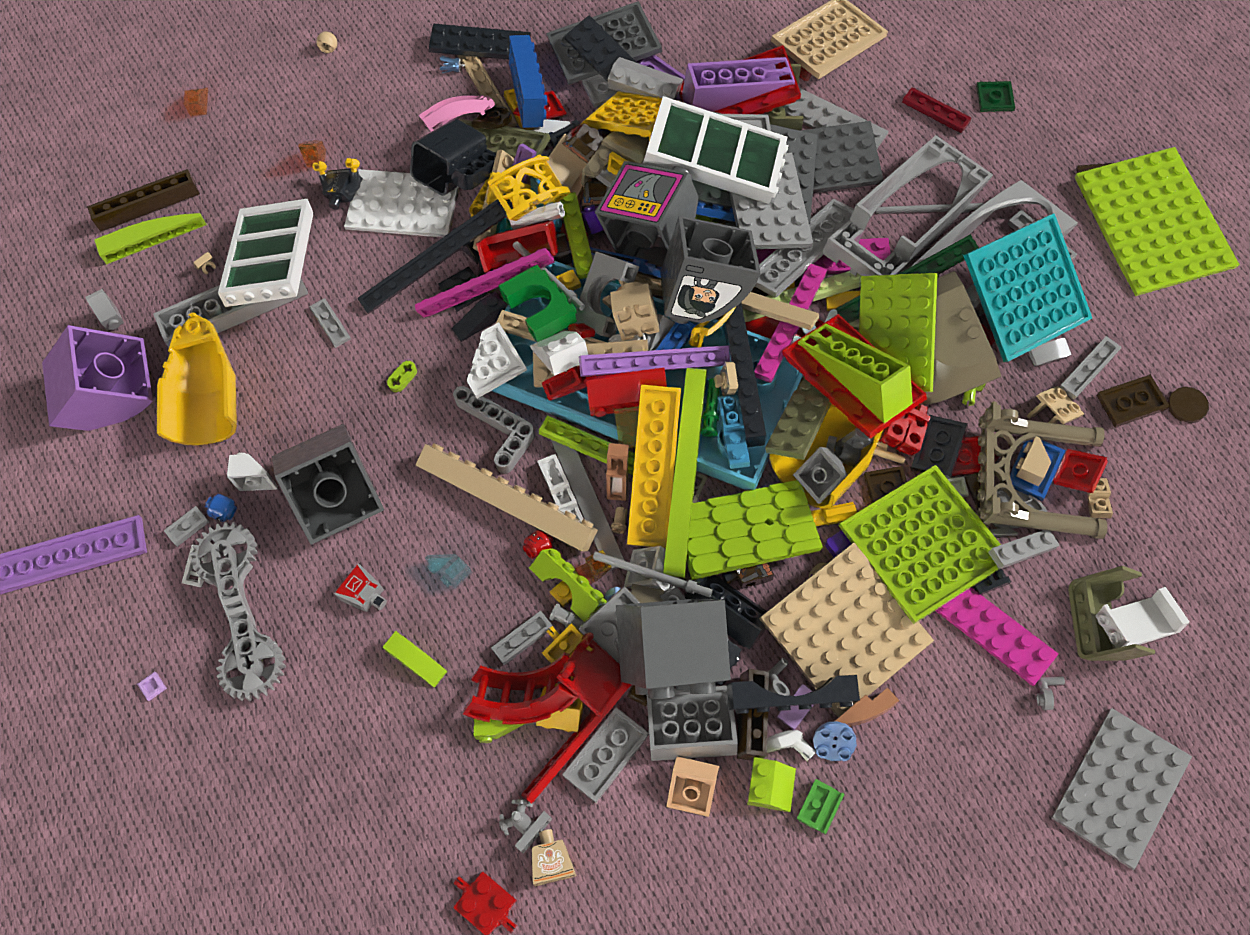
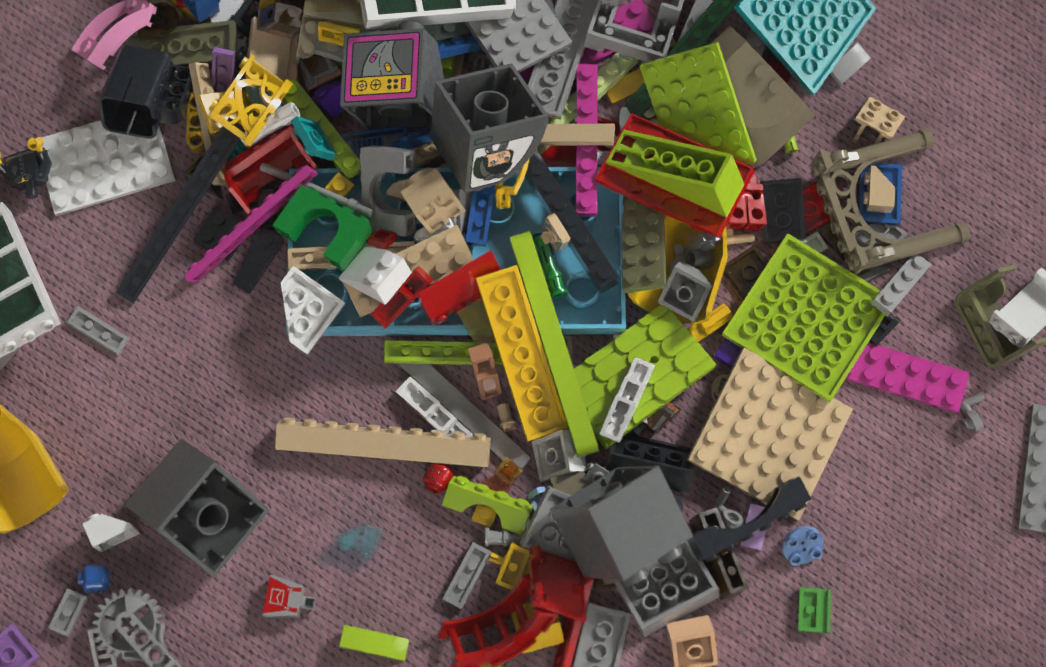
camera: 30 degrees left, 10 degrees up
(402, 376) = (203, 357): lime beam -> none
(499, 422) = (336, 367): light grey beam -> none
(563, 232) = (314, 138): none -> teal plate
(670, 359) = (475, 245): medium lavender plate -> none
(690, 586) = (610, 458): light grey bar -> none
(728, 544) = (627, 399): none -> white slope
(733, 432) = (583, 285): dark azure slope -> none
(771, 785) = (762, 610): lime slope -> none
(791, 739) = (761, 561): white arm -> none
(868, 709) = (820, 500): nougat slope -> none
(1080, 471) = (923, 180): red plate -> none
(1090, 367) = (893, 65): light grey plate -> none
(1099, 501) = (949, 200): tan slope -> none
(1132, 400) = (945, 84): dark brown plate -> none
(1188, 404) = (998, 67): dark brown tile -> none

